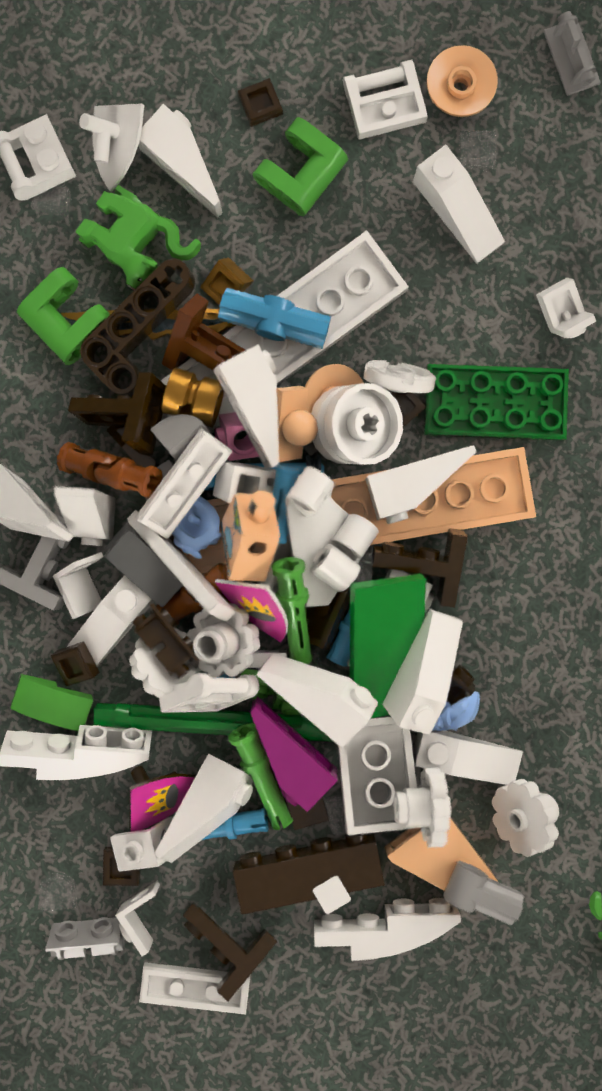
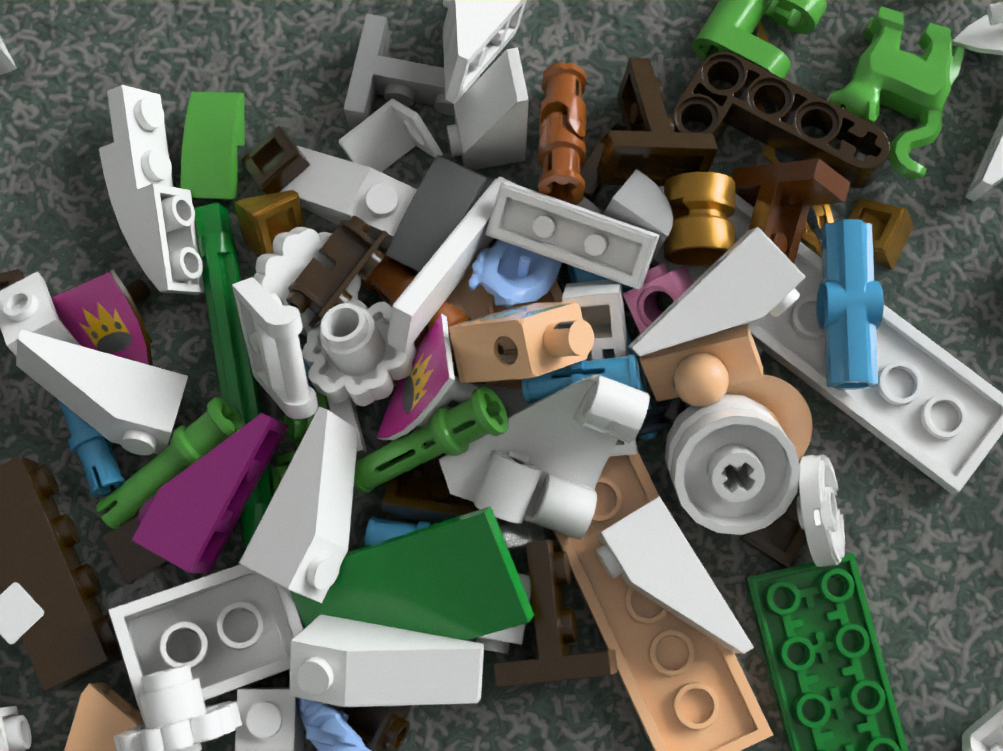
camera: 70 degrees right, 10 degrees down
(115, 676) = (266, 217): none -> pearl gold slope

